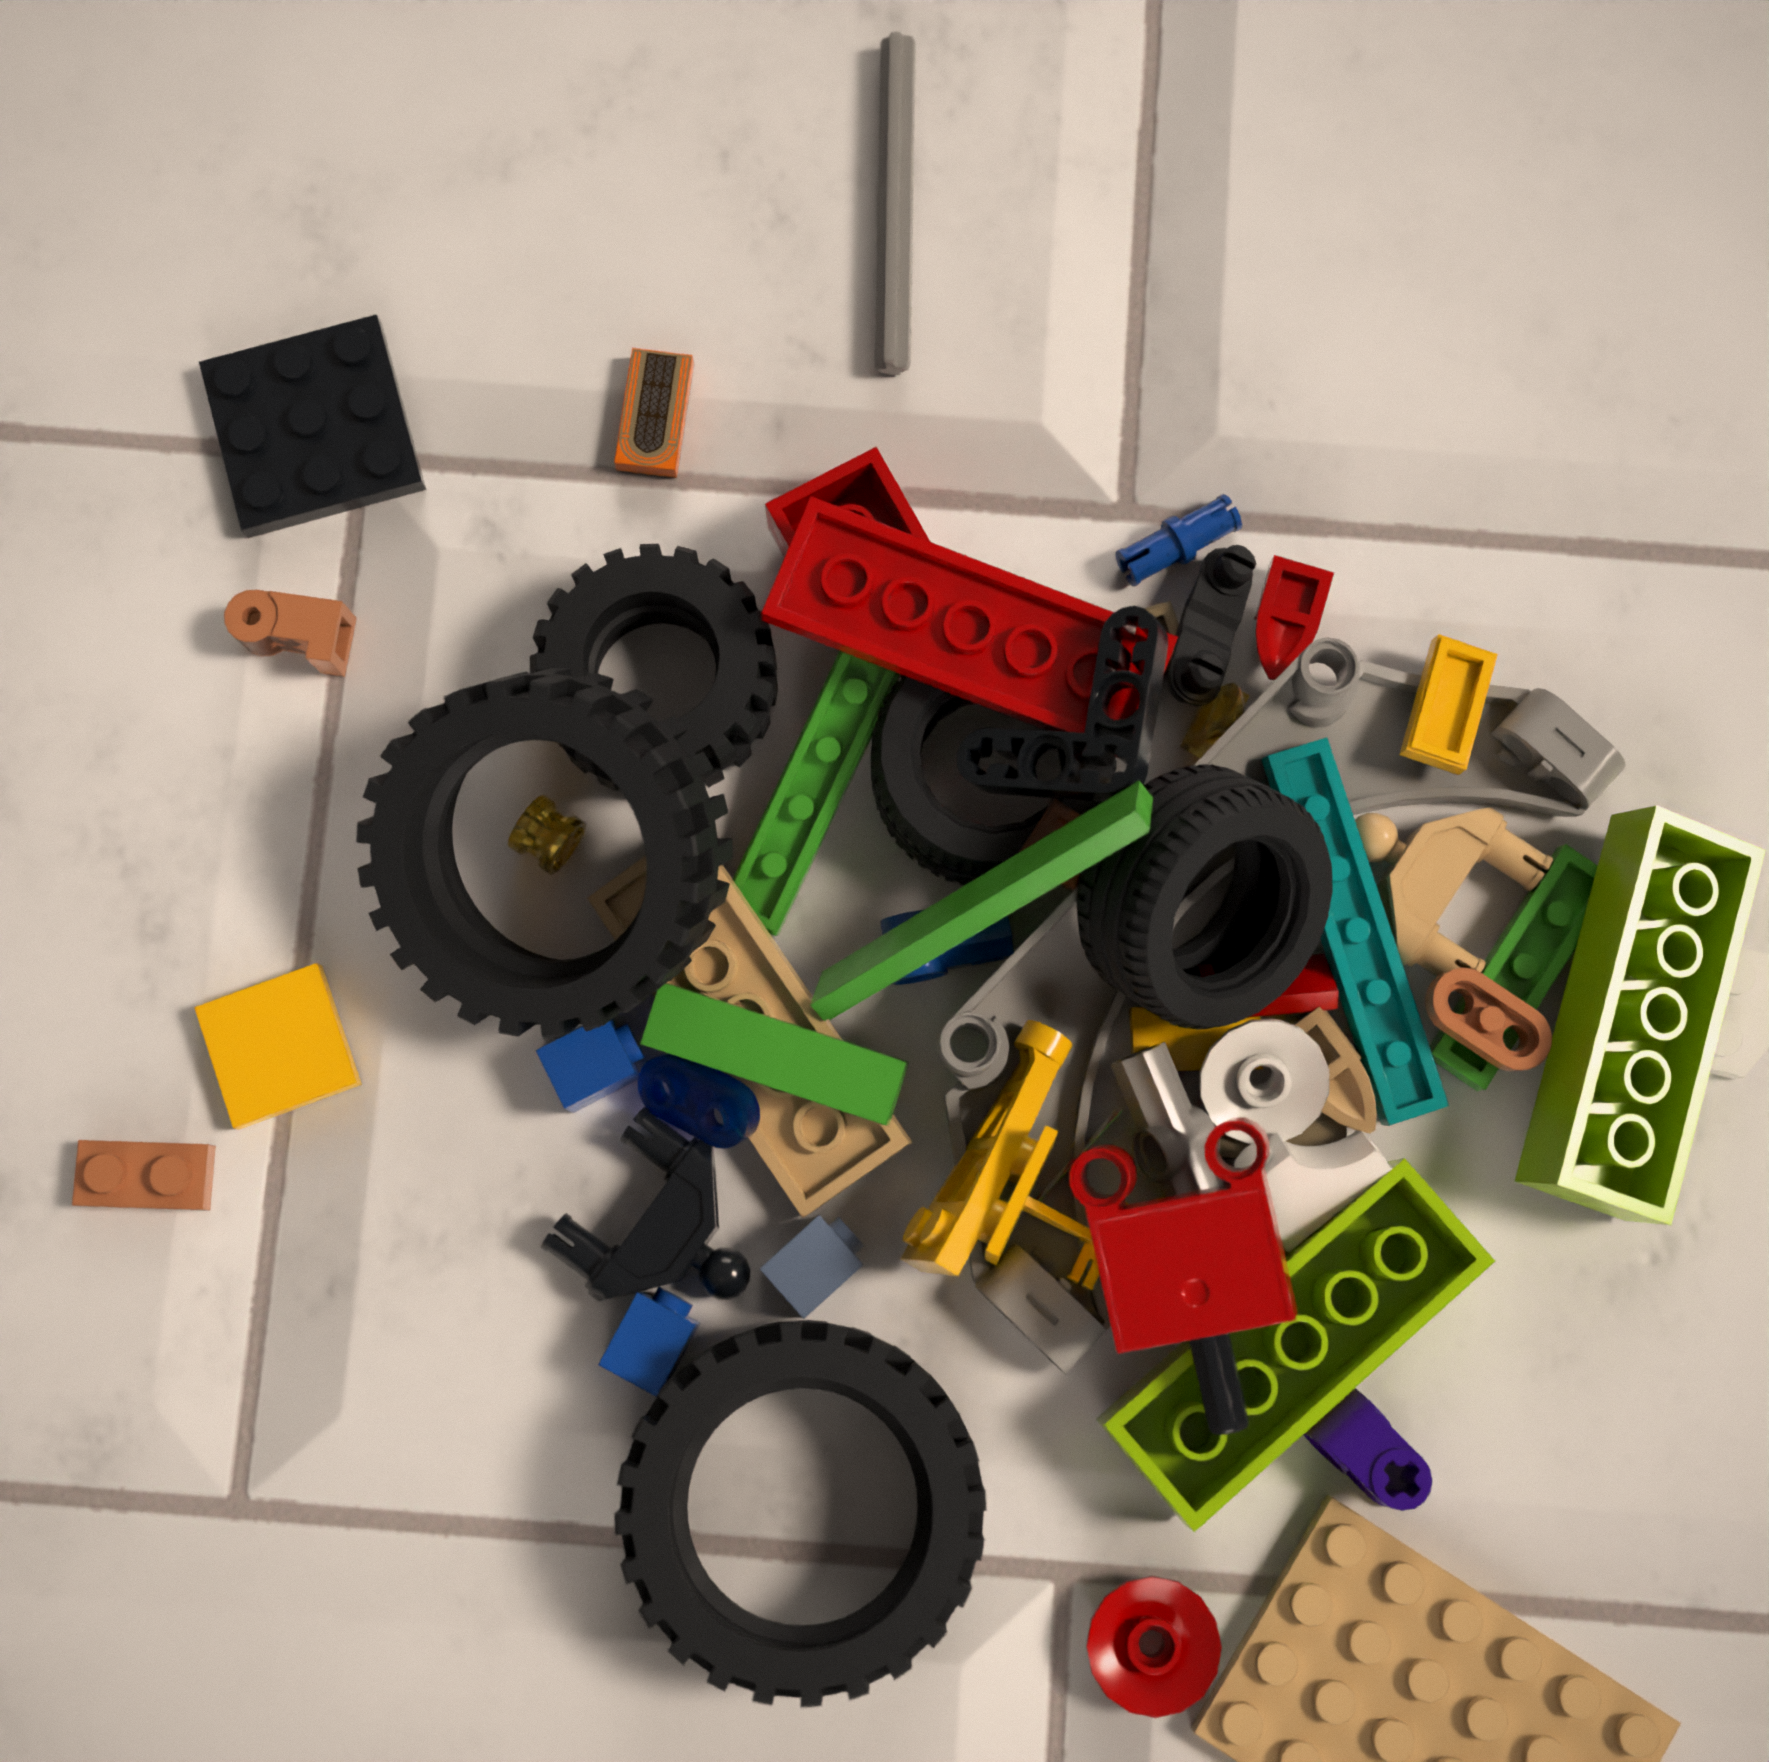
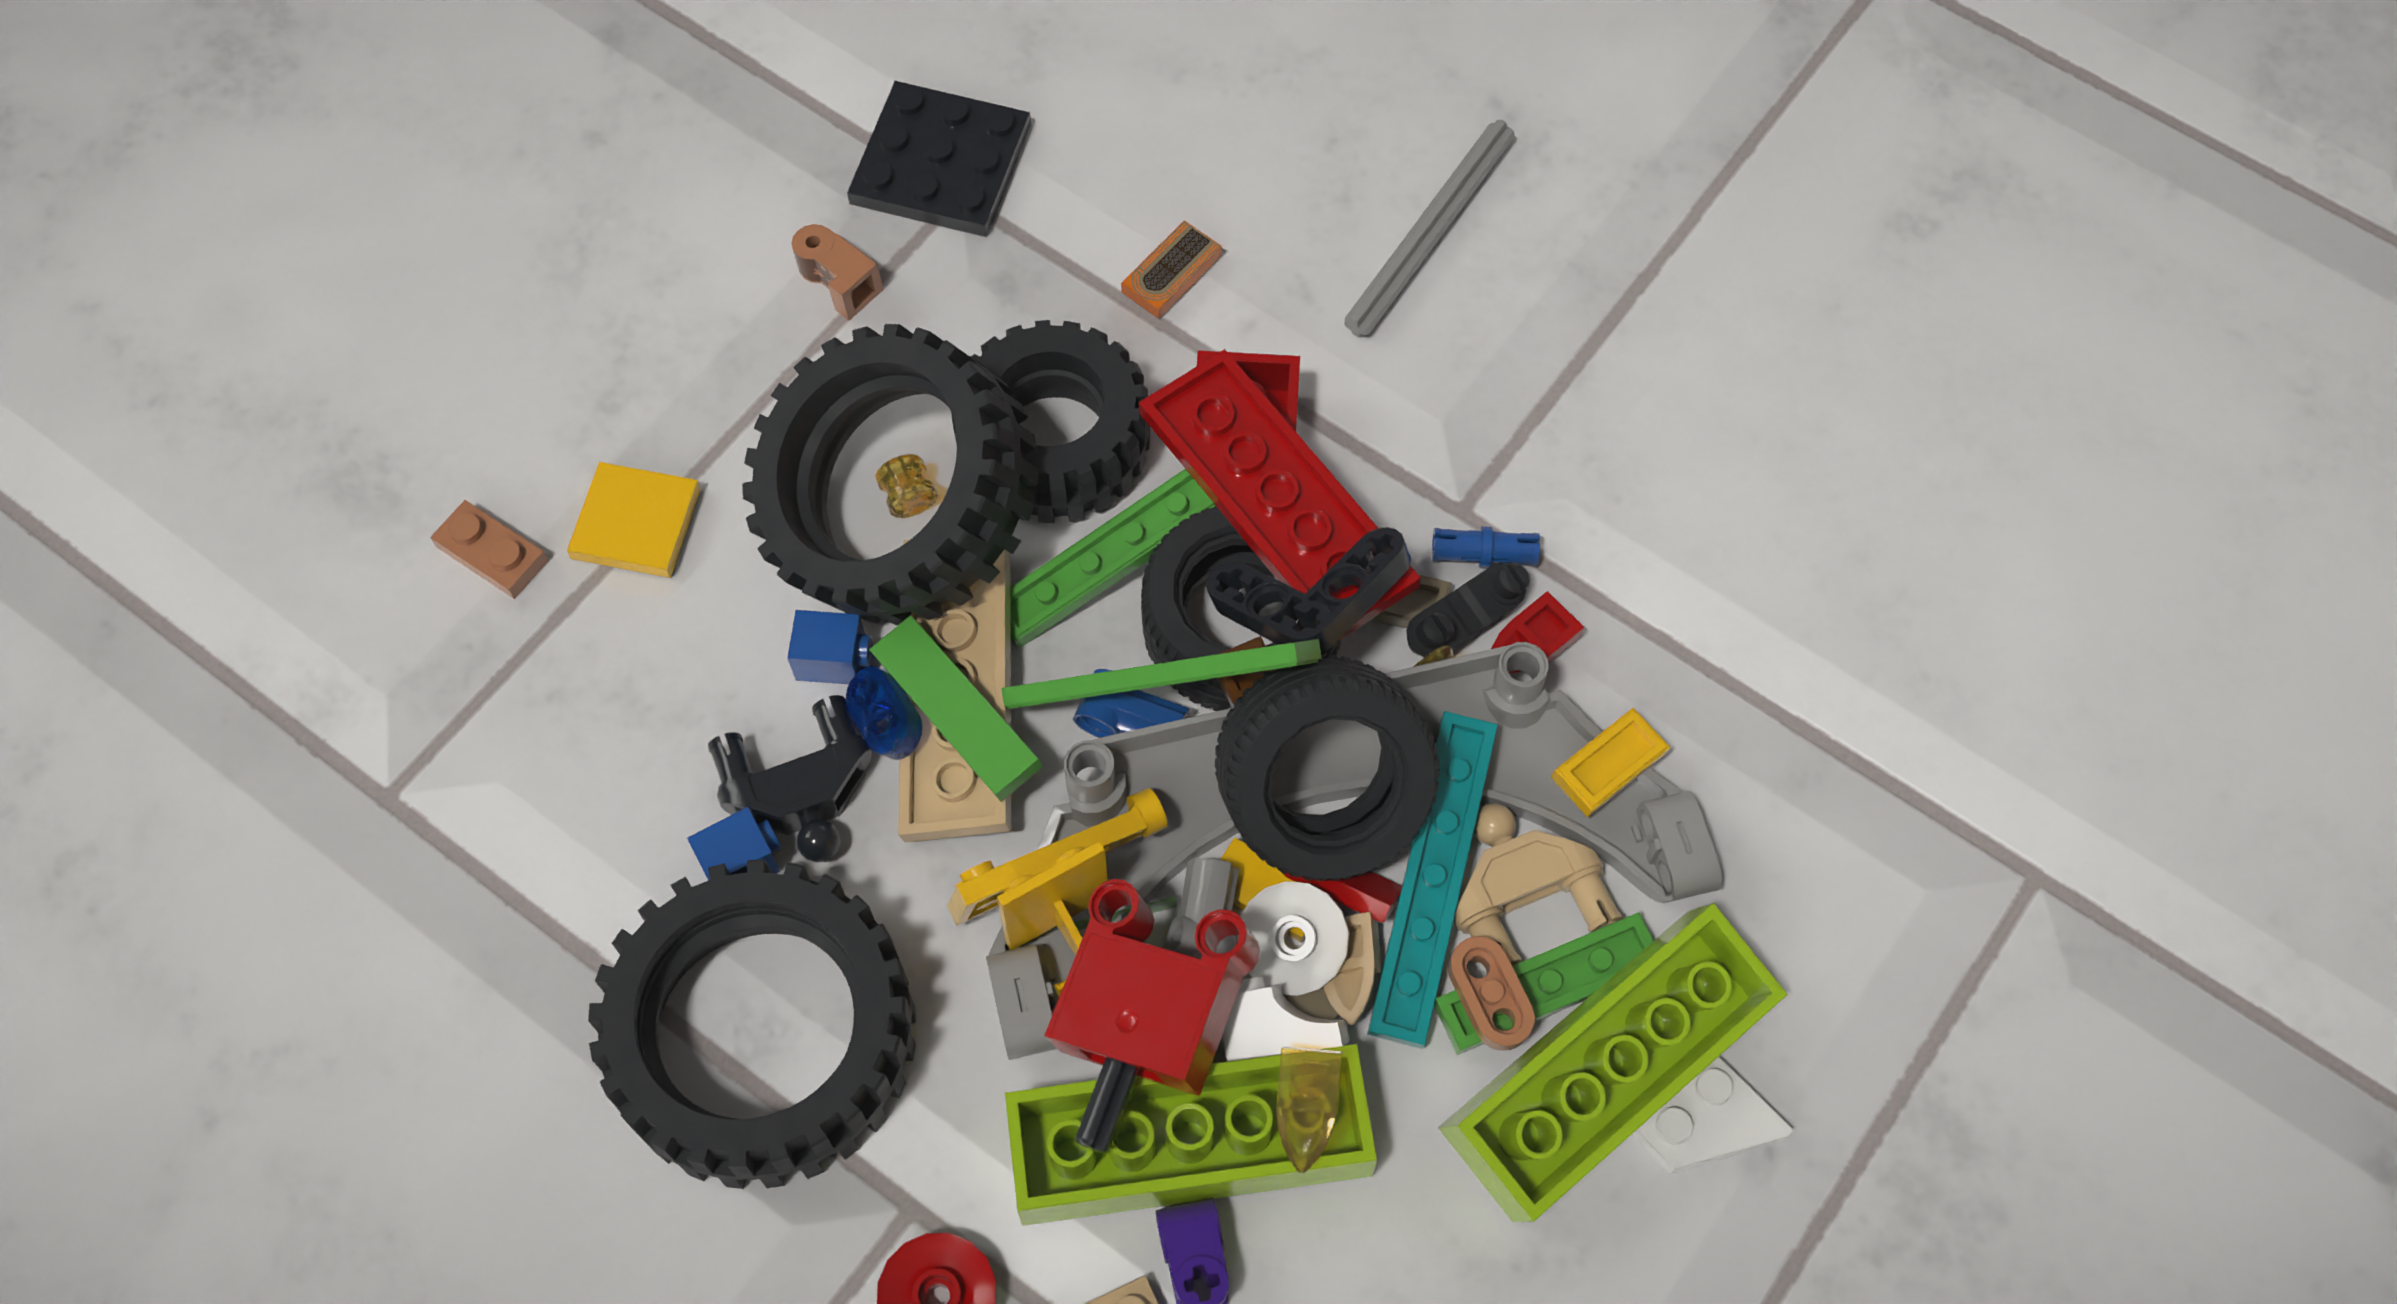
camera: 35 degrees right, 15 degrees down
(814, 1264) = (885, 870): sand blue brick -> none
(1404, 1250) = (1307, 1102): none -> clear yellow plate

